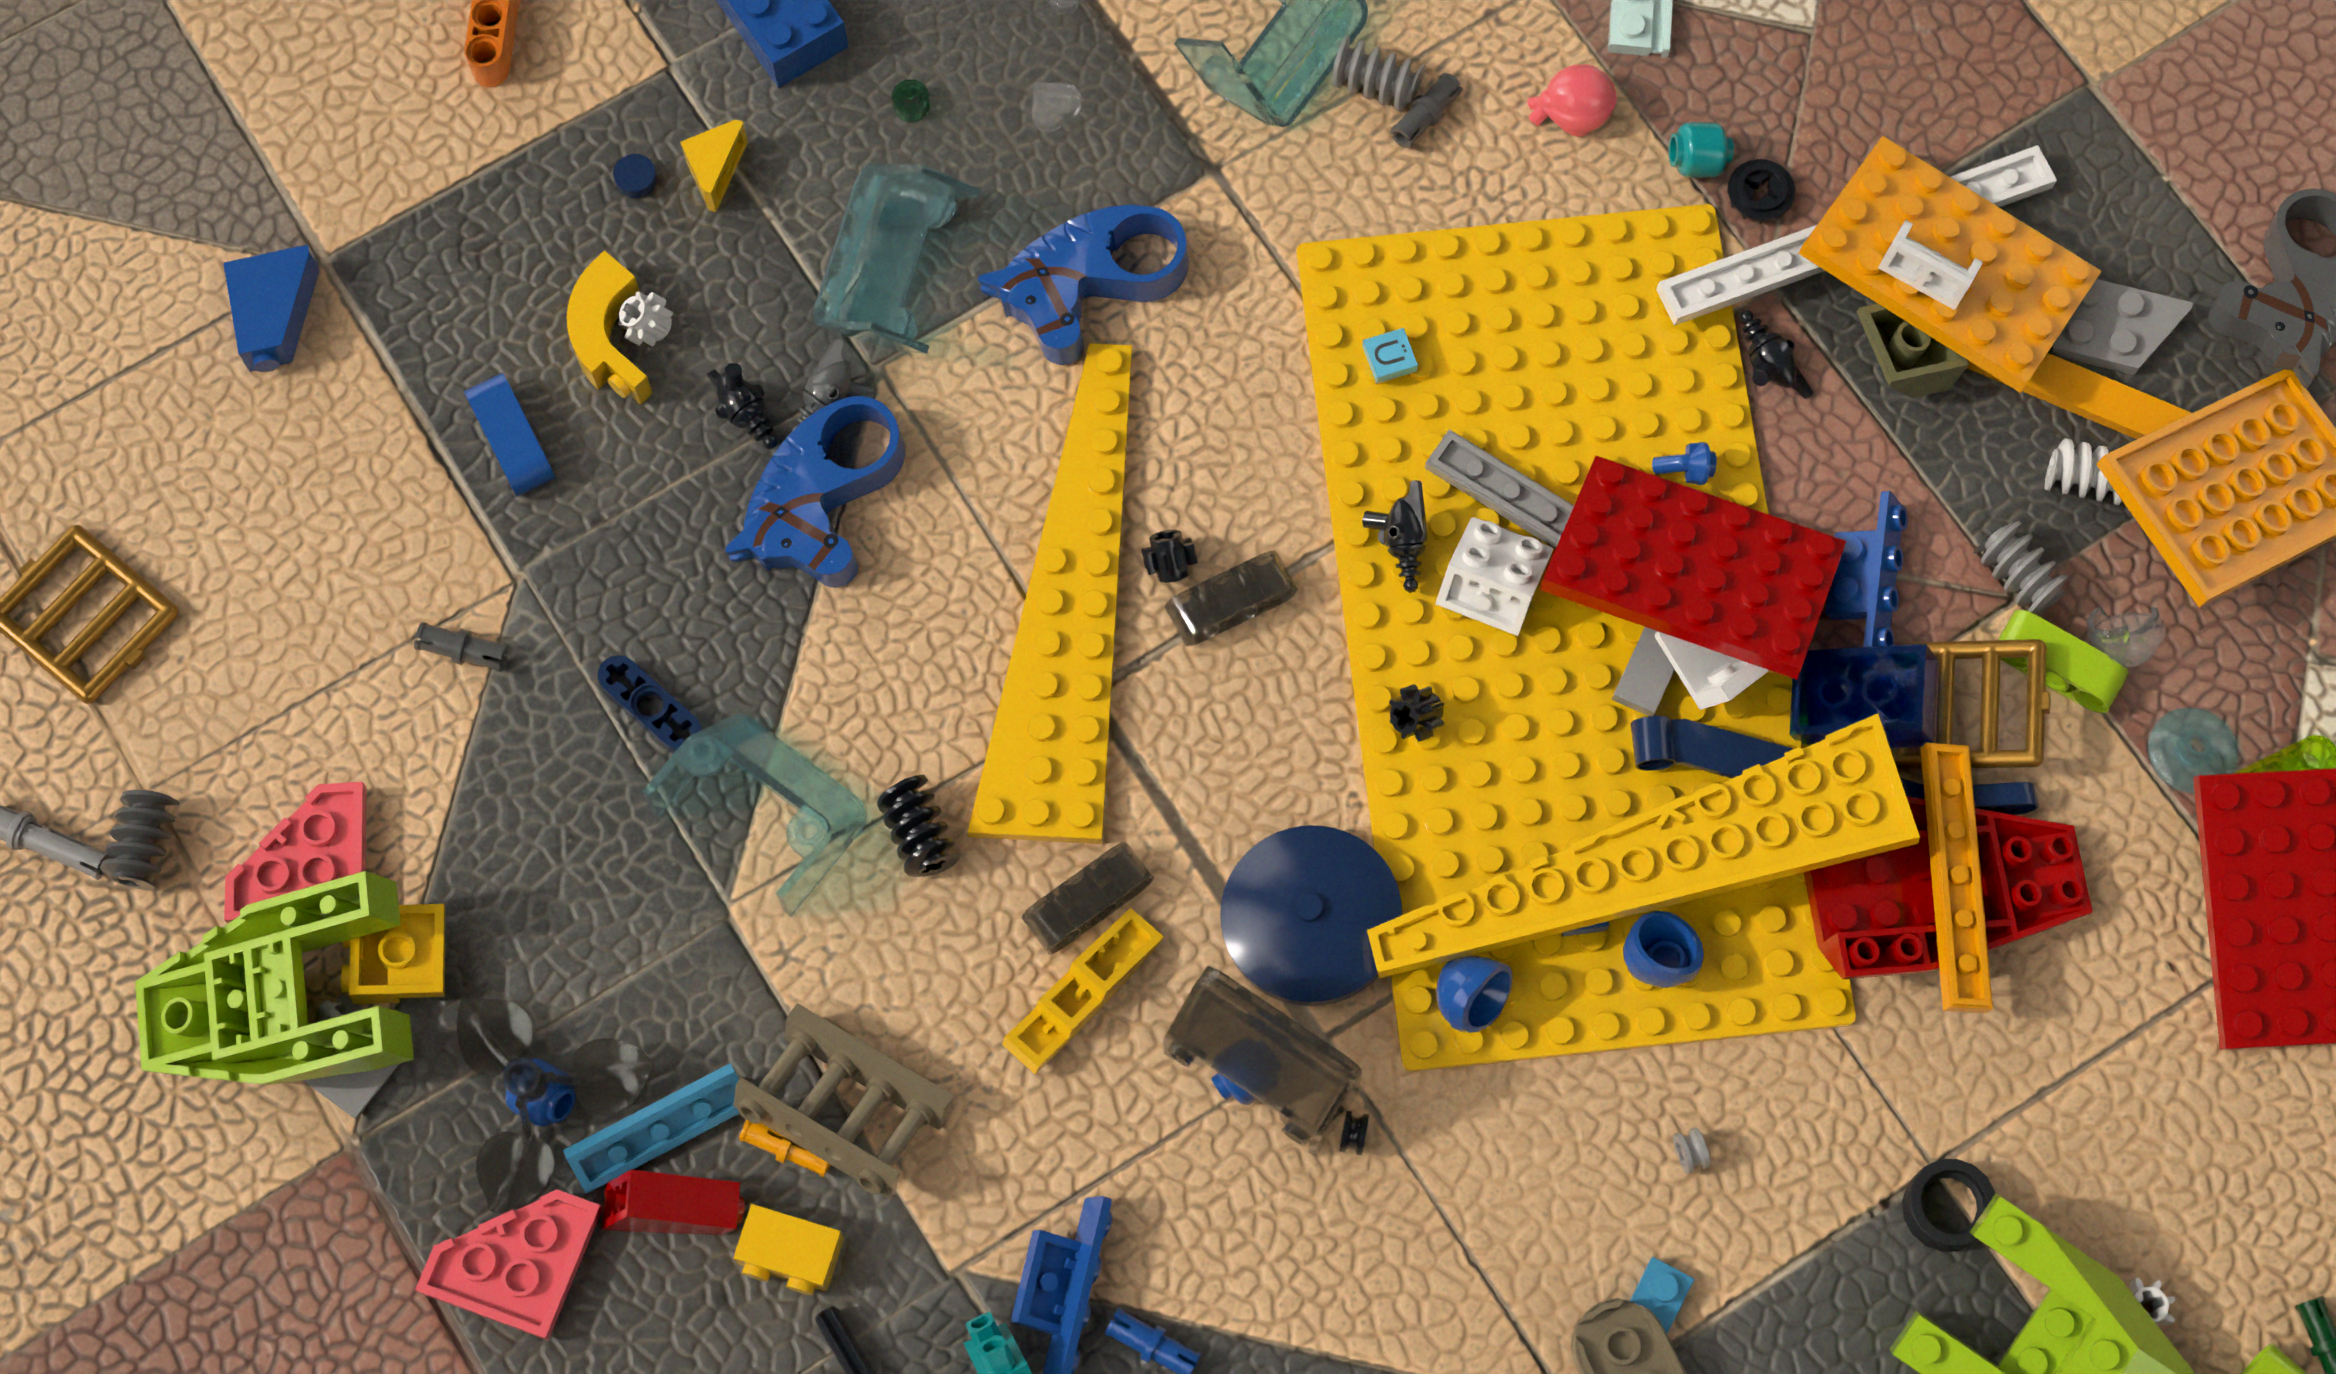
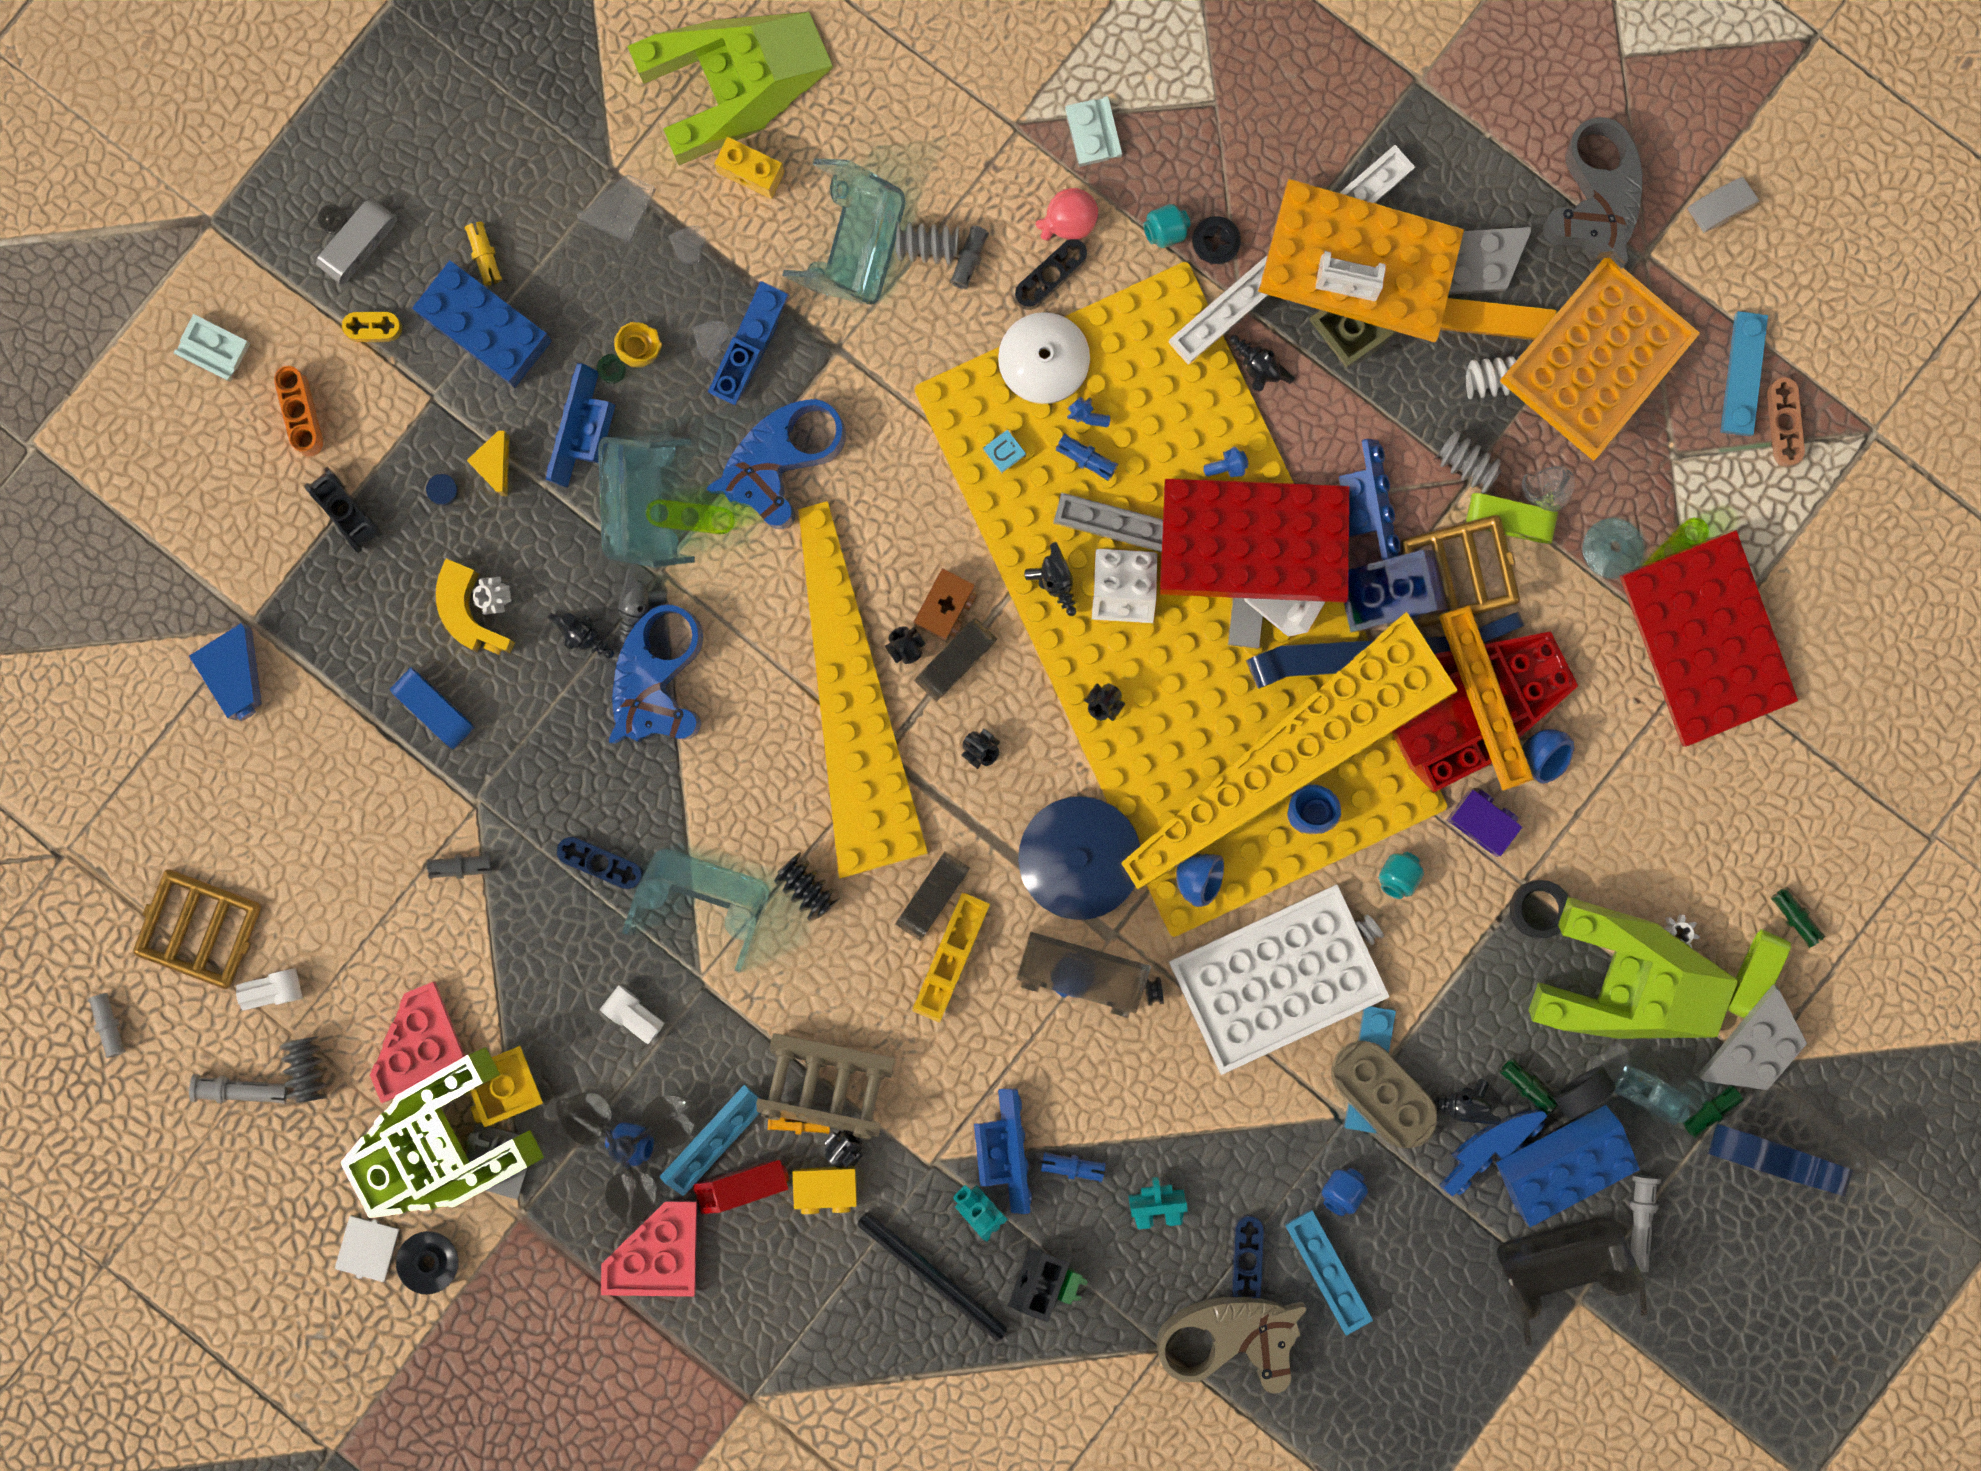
camera: 20 degrees left, 15 degrees up
(121, 1117) = (367, 1248): none -> white piece
(153, 723) = (277, 989): none -> white piece
(176, 1148) = (414, 1271): none -> black dish
(504, 177) = (330, 495): none -> black piece
(610, 912) = (626, 1010): none -> white piece
(835, 1200) = (843, 1149): none -> black gear
(840, 152) = (581, 427): none -> blue bracket
(930, 284) = (703, 522): none -> clear neon green beam
(955, 79) = (637, 344): none -> yellow hair
(1103, 123) = (749, 343): none -> blue slope
(1224, 722) = (980, 748): none -> black gear
(1248, 502) = (930, 614): none -> dark orange brick
(1478, 280) = (1039, 378): none -> white dish
(1494, 165) = (1073, 265): none -> black beam
(1498, 395) = (1086, 457): none -> blue pin
(1510, 335) = (1082, 411): none -> blue plate
(1538, 1177) = (1278, 979): none -> white plate
(1760, 1089) = (1401, 875): none -> teal head
(1903, 1056) = (1484, 822): none -> dark purple brick
(2025, 991) = (1548, 754): none -> blue hat

